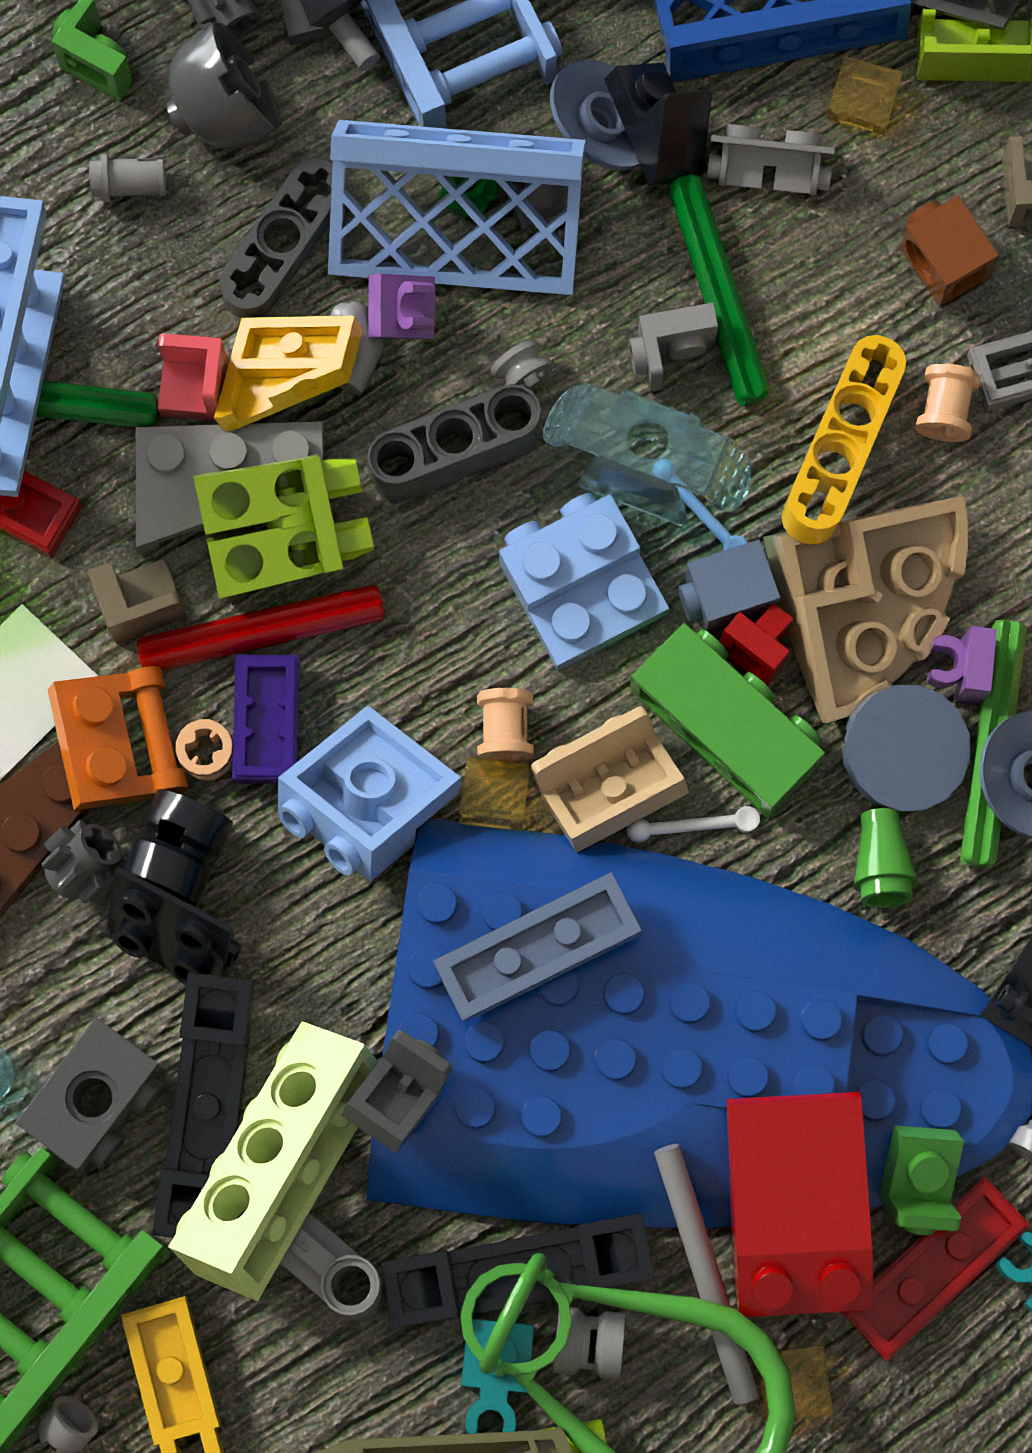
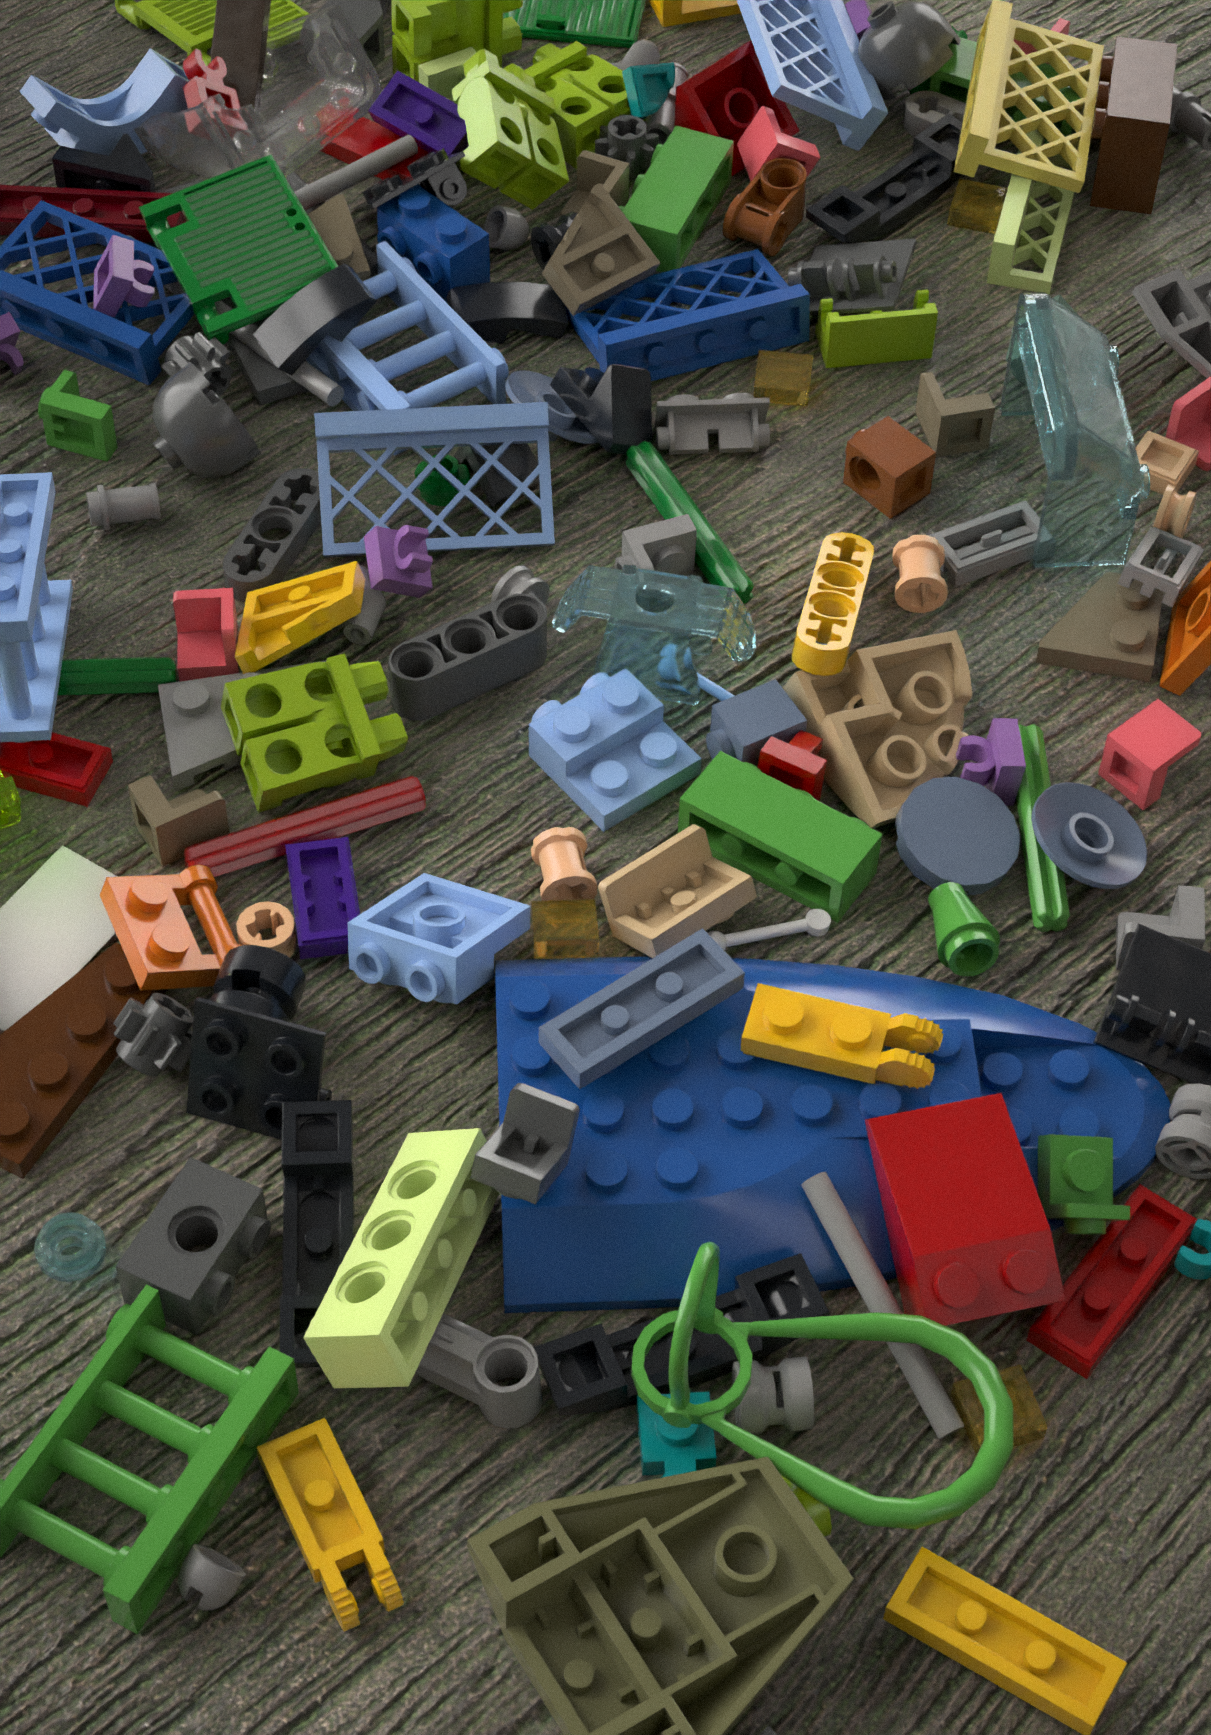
camera: 15 degrees left, 25 degrees down
(716, 1005) = (840, 1038): none -> yellow hinge

